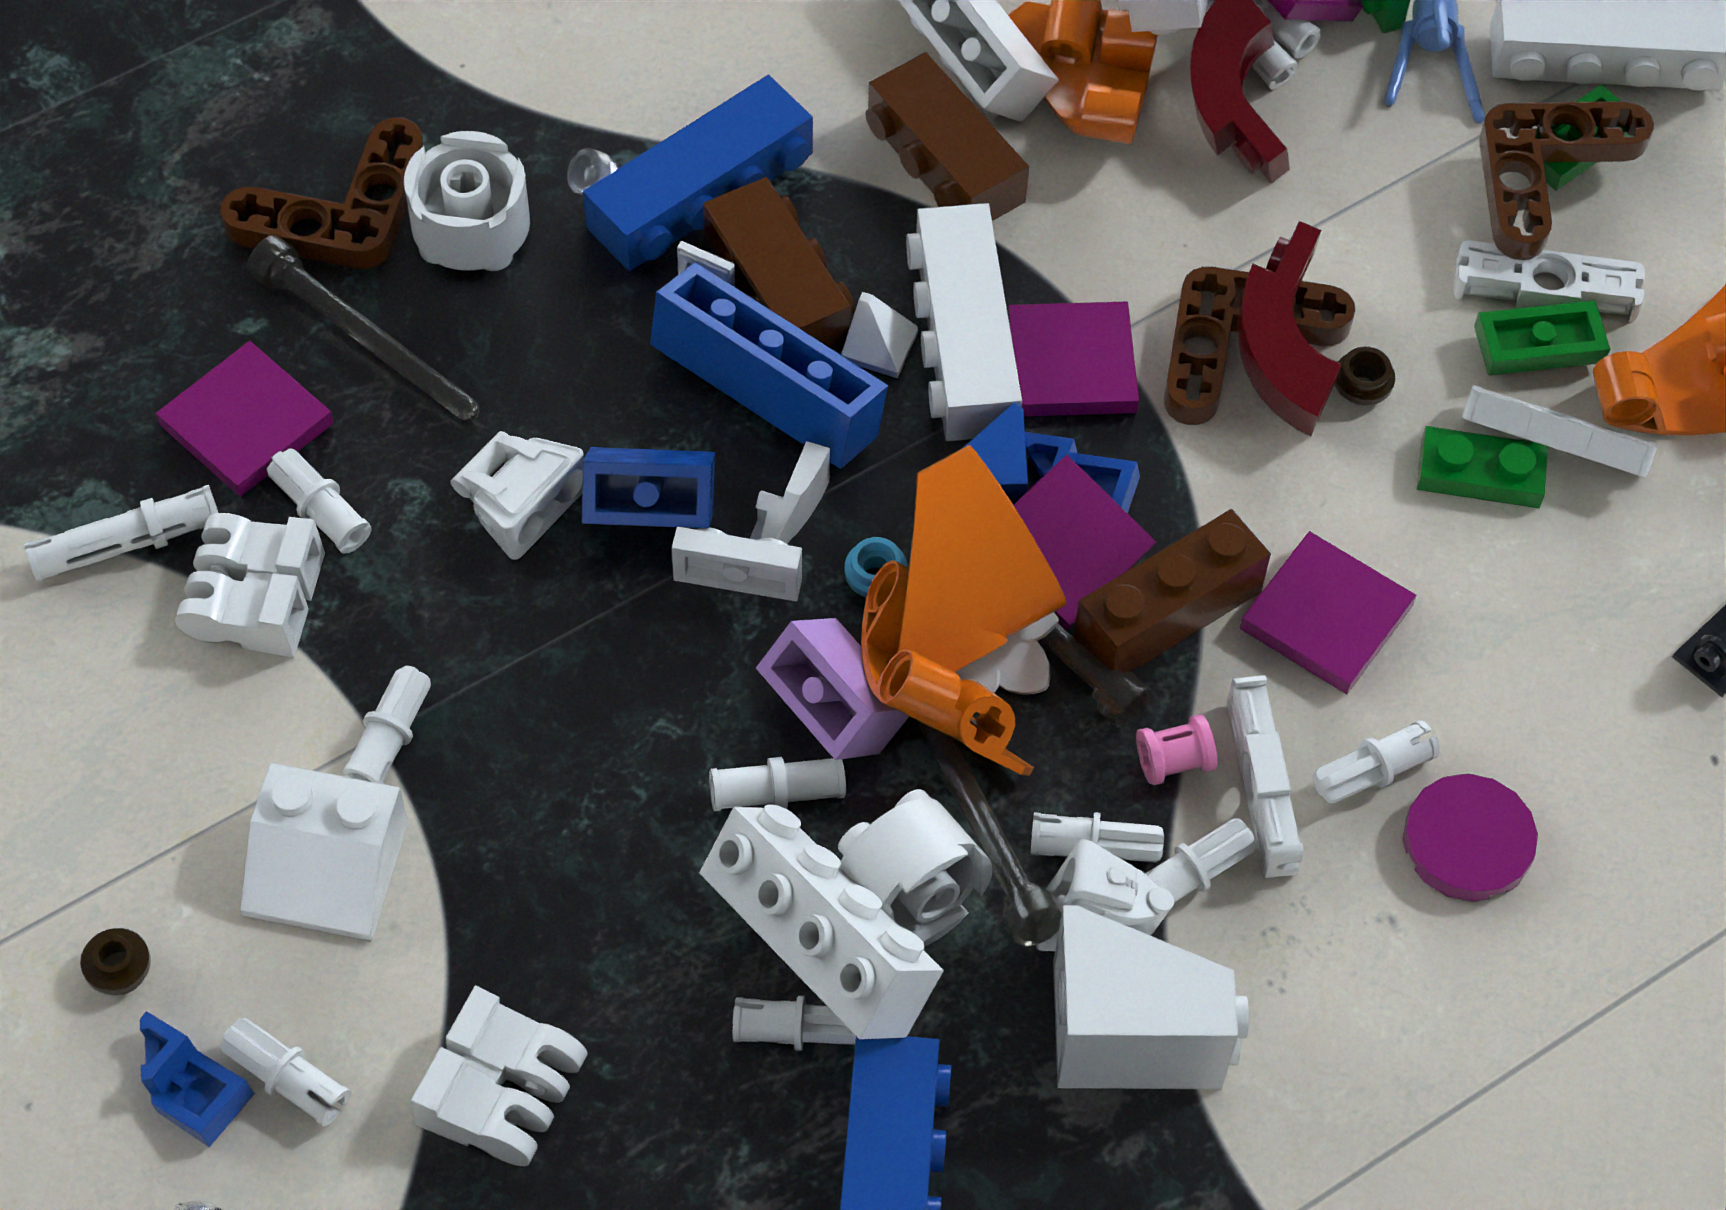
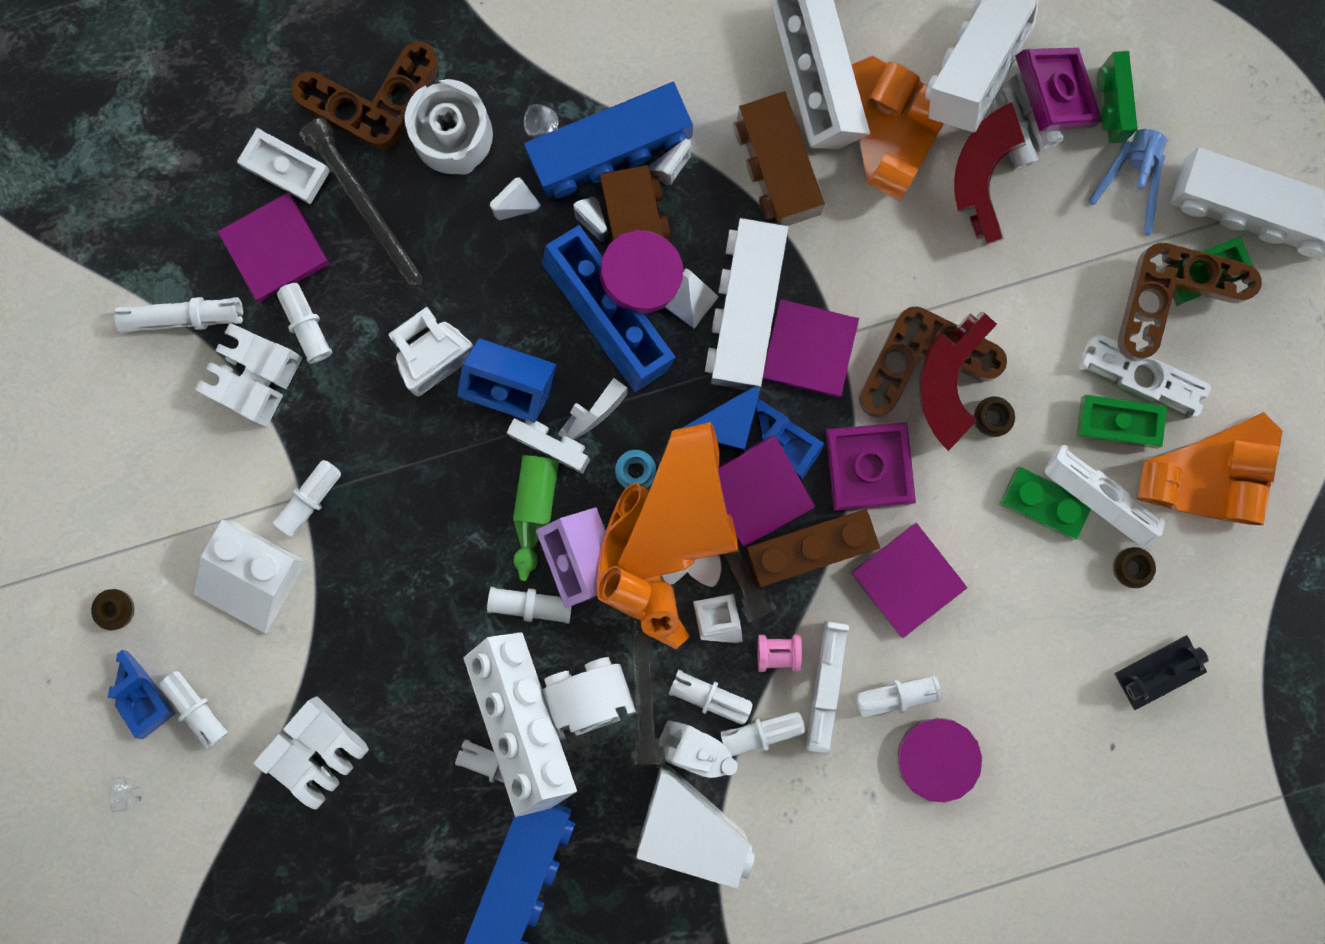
camera: 20 degrees right, 25 degrees up
(233, 310) = (283, 166): none -> white plate
(586, 275) = (514, 201): none -> white slope
(737, 647) = (533, 507): none -> bright green wheel
(800, 174) = (671, 163): none -> white slope
(803, 292) = (641, 271): none -> magenta tile
(1072, 733) = (718, 619): none -> white slope
(1210, 472) = (870, 466): none -> magenta tile
(1641, 499) = (1146, 567): none -> dark brown plate

